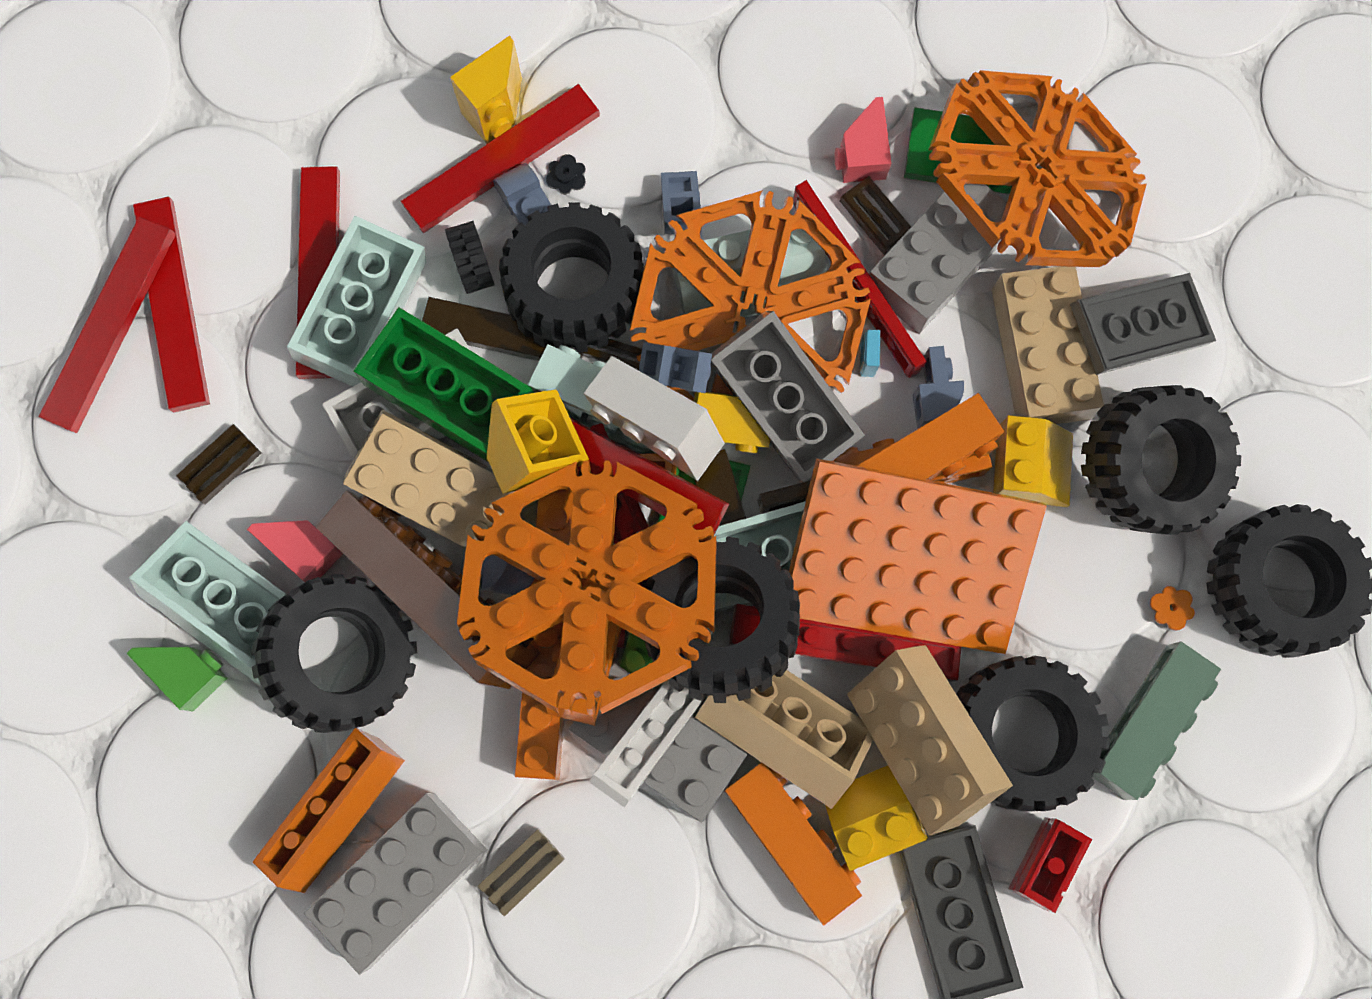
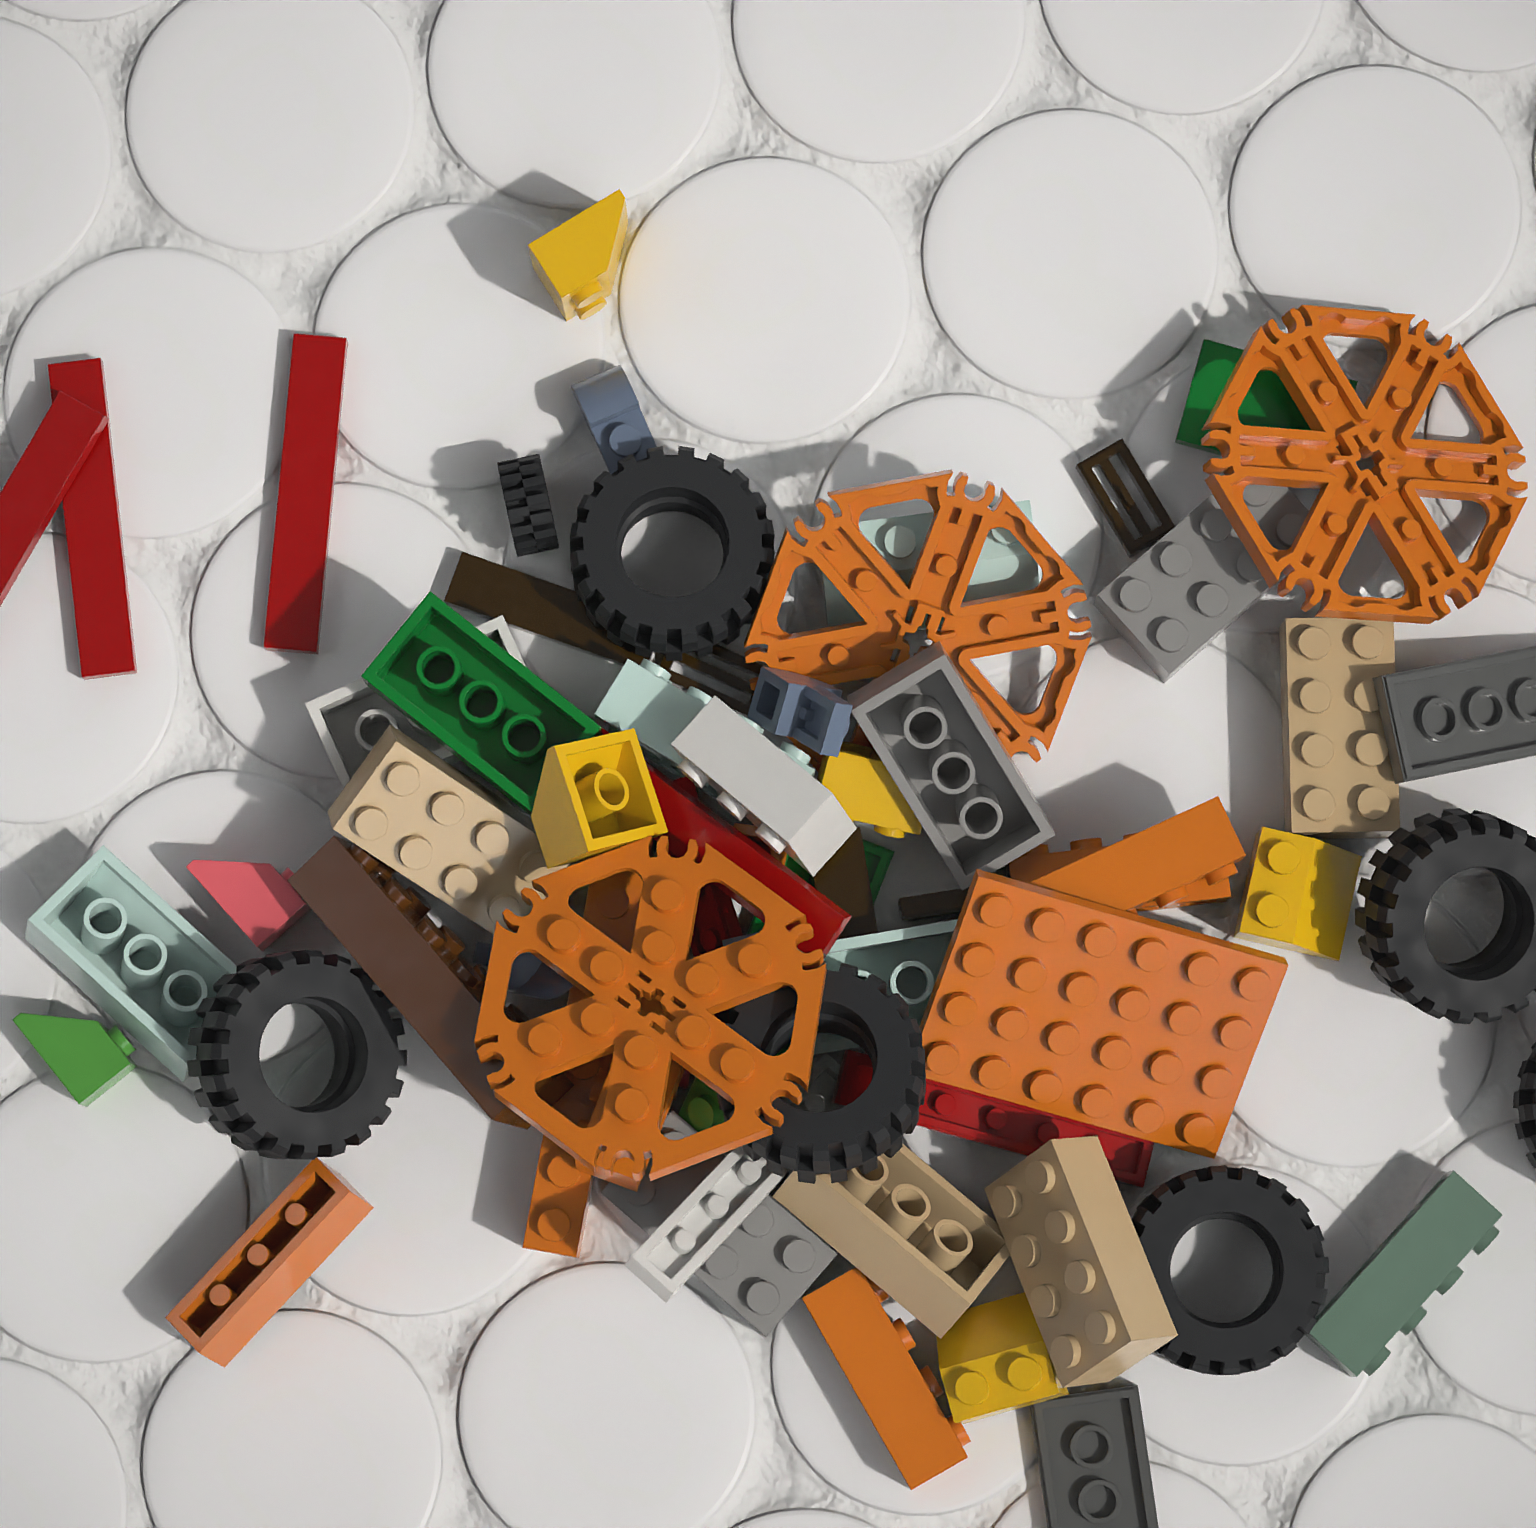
camera: 10 degrees right, 5 degrees up
(211, 453) = (134, 746): dark brown tile -> none
(356, 299) = (364, 557): light aqua brick -> none
(395, 882) = (350, 1366): light grey brick -> none
(495, 896) = (478, 1402): dark tan tile -> none
(509, 150) = (586, 348): red tile -> none
(566, 182) = (675, 396): black plant -> none
(679, 196) = (839, 448): sand blue brick -> none
(865, 146) = (1121, 394): coral slope -> none
(870, 353) = (1084, 708): medium azure tile -> none
(879, 310) = (1103, 640): red tile -> none
(938, 393) = (1173, 786): sand blue brick -> none
(1050, 864) = (1226, 1447): red brick -> none
(1179, 600) = (1472, 1111): orange plant -> none

